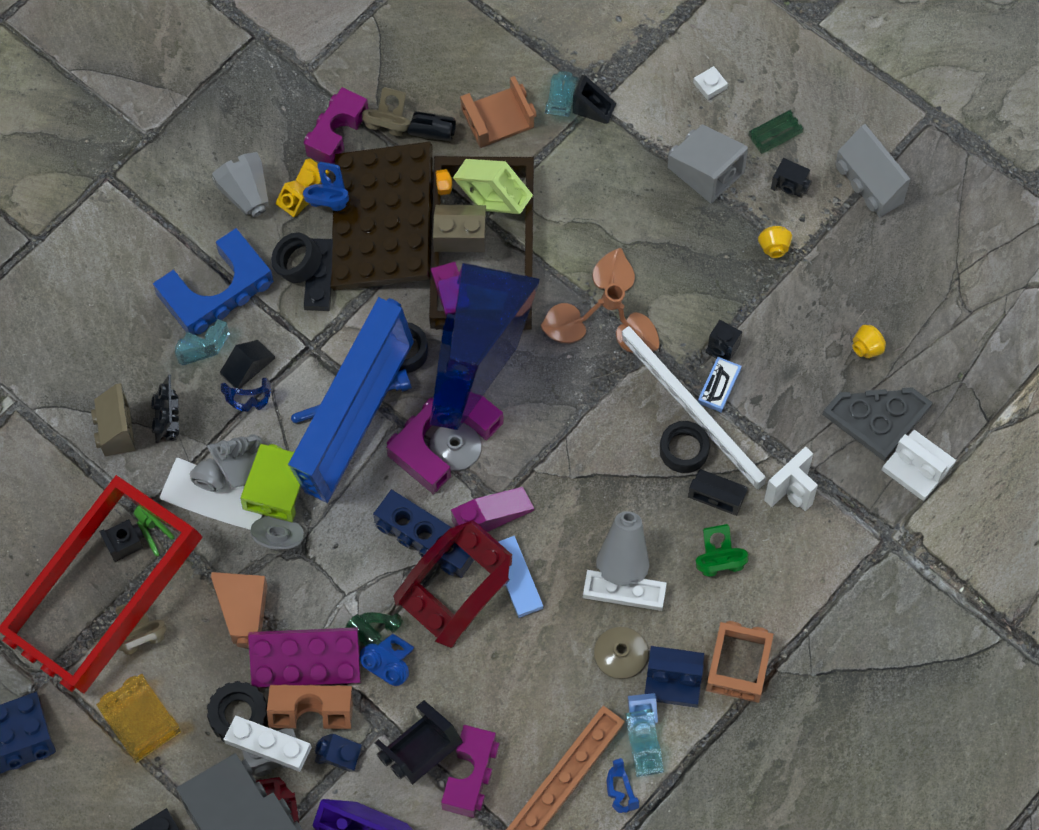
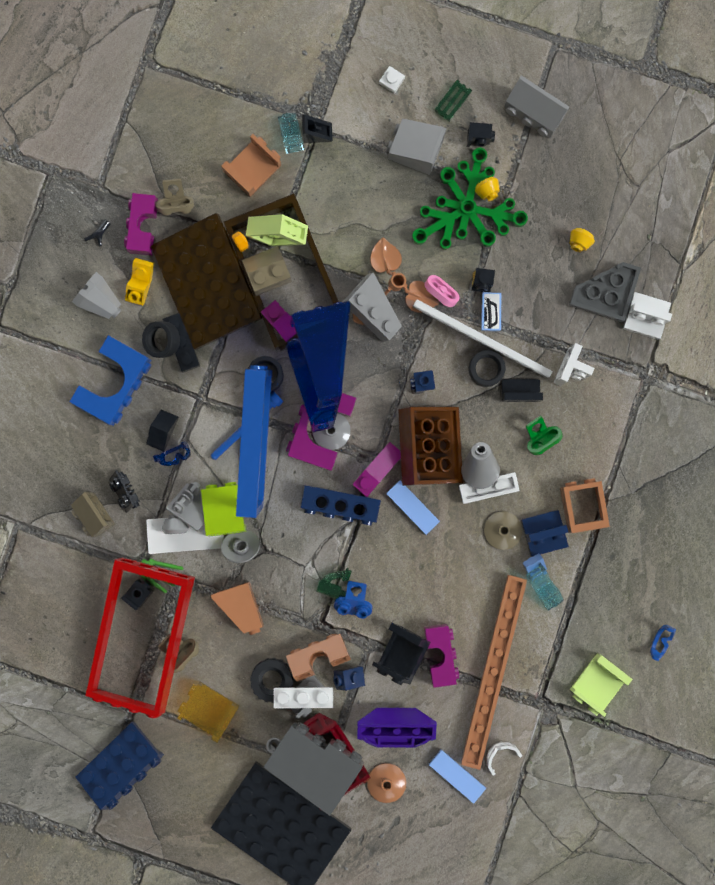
camera: 30 degrees left, 20 degrees up
(195, 348) = (120, 436): clear light blue slope -> none
(281, 119) = (98, 233): none -> black bar
(304, 657) = (299, 625): magenta plate -> none
(328, 193) = (159, 281): blue bracket -> none
(428, 609) = (368, 557): dark red wedge -> none
(432, 126) = (209, 195): black arm -> none
(570, 318) = (373, 308): none -> light grey wedge
(571, 509) = (430, 445): none -> reddish brown slope
(594, 426) = (422, 381): none -> dark blue bracket
(618, 771) = (536, 613): blue helmet -> none
(666, 335) = (441, 291): none -> bright pink plate
(711, 259) = (447, 219): none -> green plant

